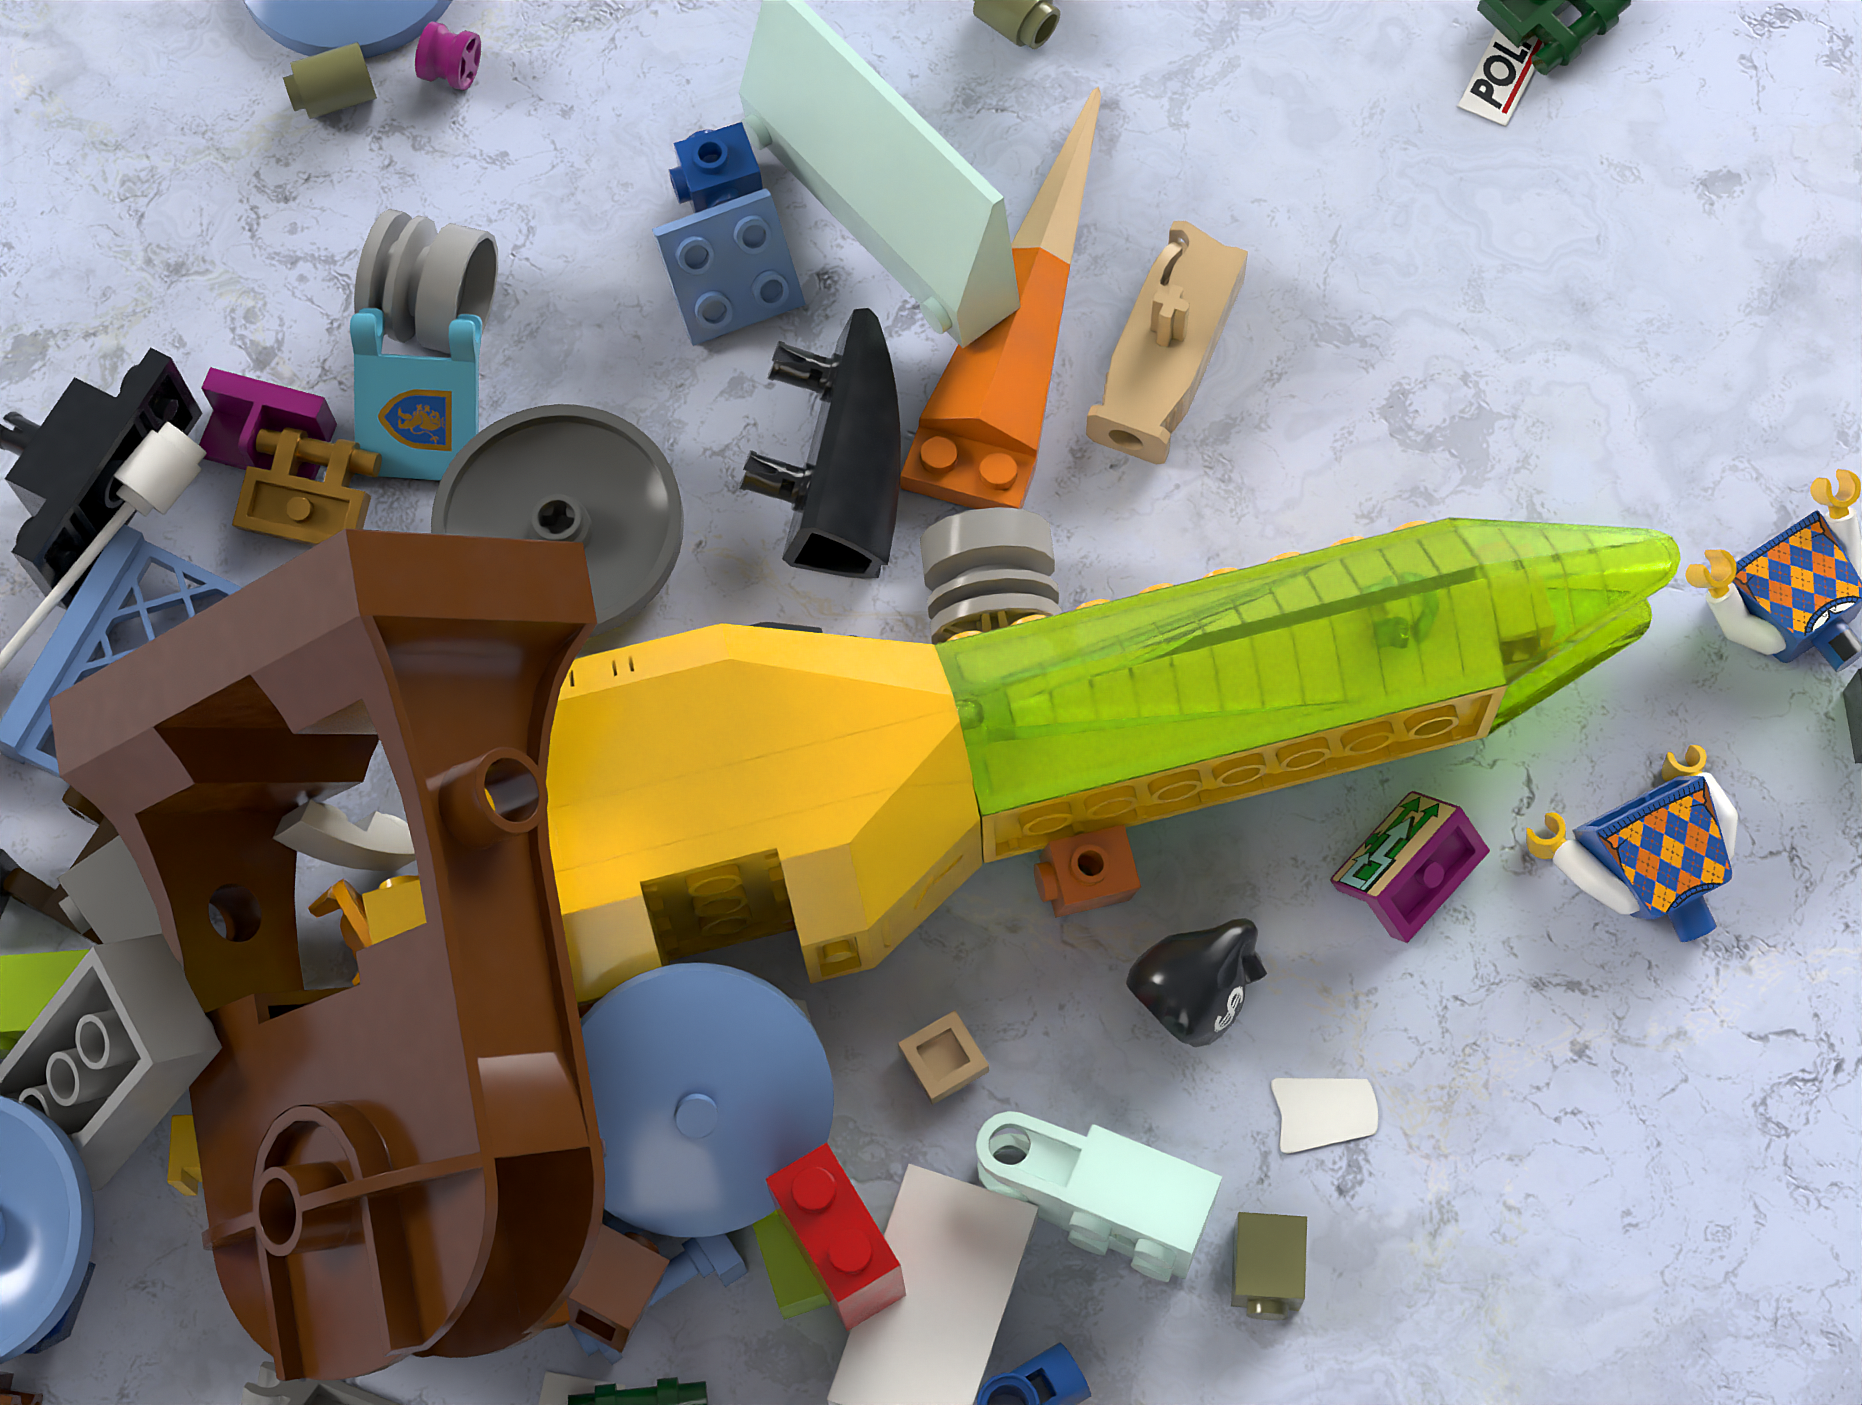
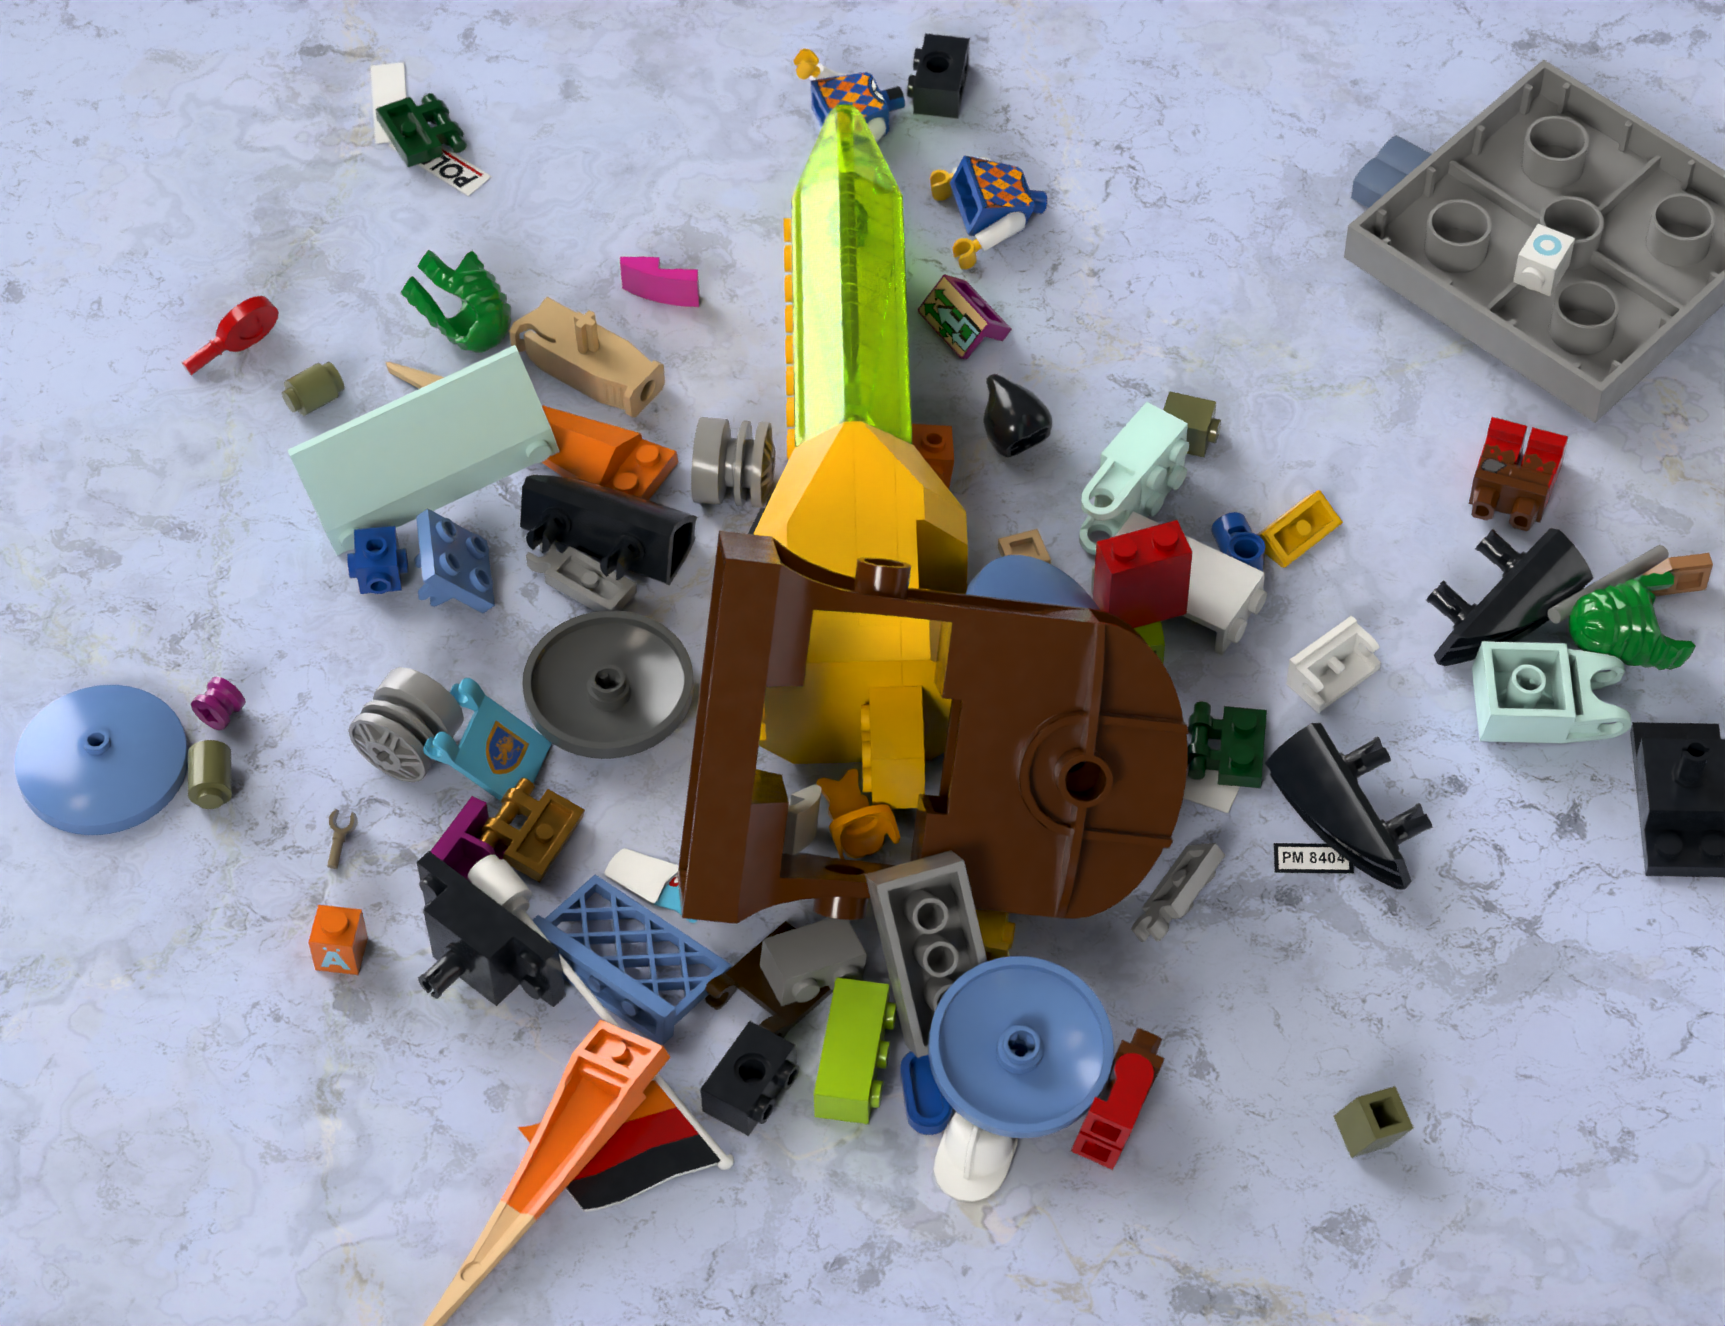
camera: 80 degrees left, 15 degrees down
(88, 305) = (338, 939): none -> orange brick
(278, 258) = (339, 837): none -> dark tan hand
(764, 425) = (582, 579): none -> light grey plate
(1203, 162) = (484, 309): none -> green hair
(1324, 1111) = (1100, 392): white sticker -> none
(1347, 400) = (667, 286): none -> dark pink slope

